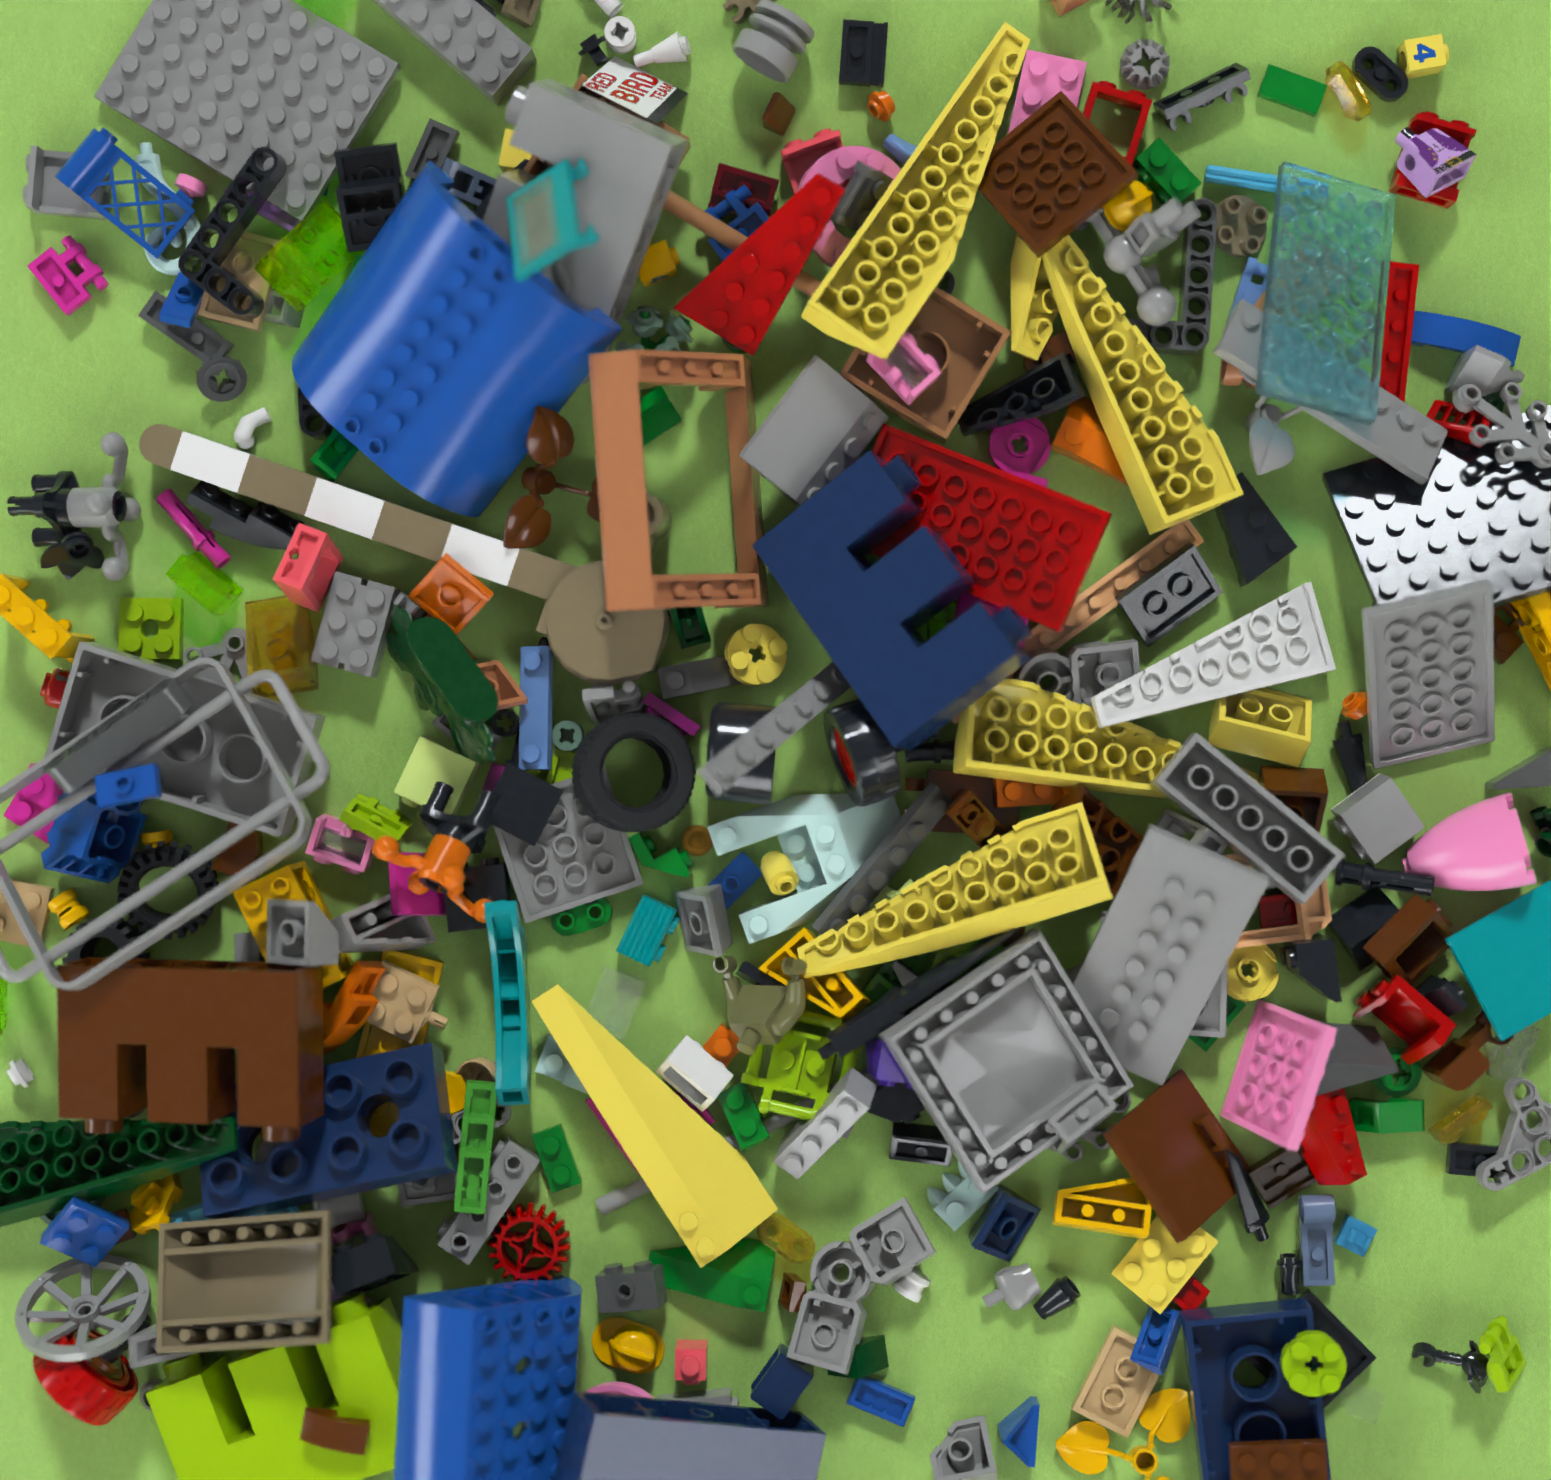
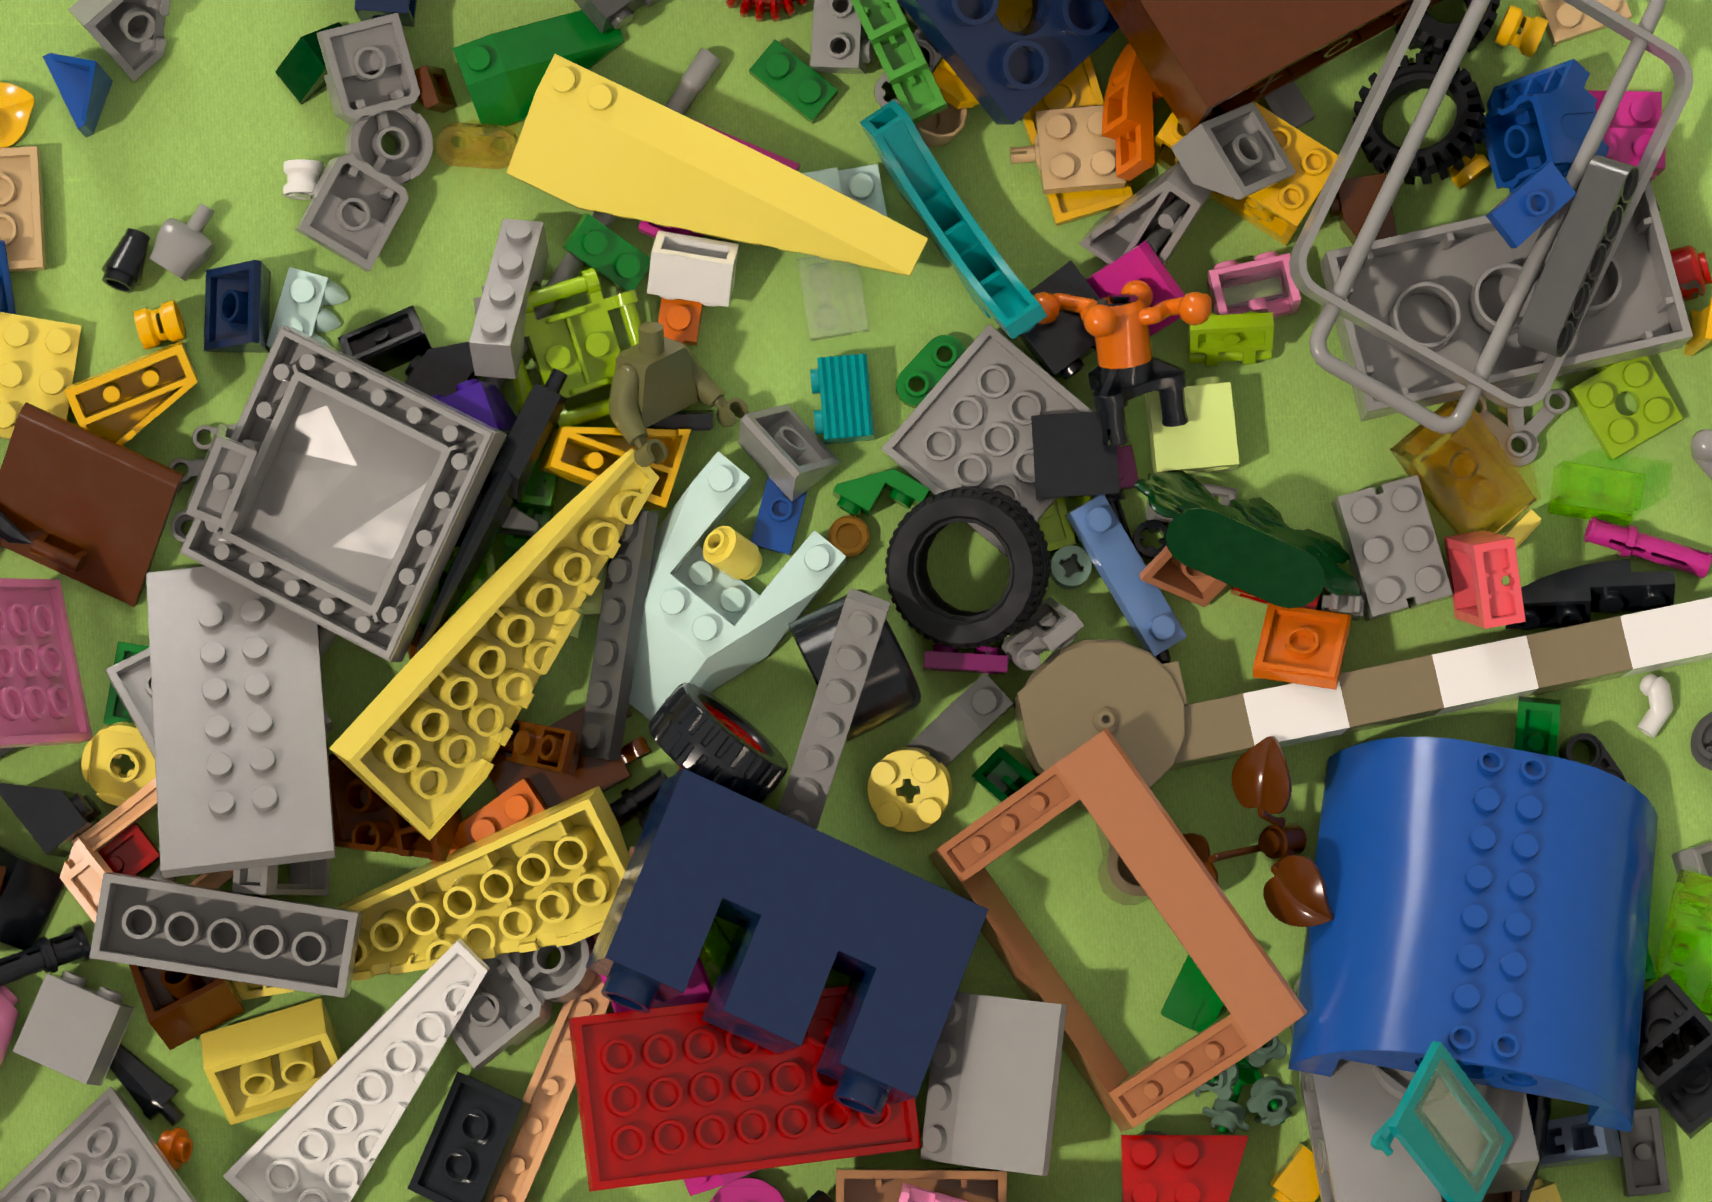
camera: 155 degrees right, 5 degrees down
(264, 588) = (1523, 527): none -> light yellow tile
(881, 1400) = (261, 29): blue plate -> none
(1060, 1243) = (151, 326): none -> yellow wheel

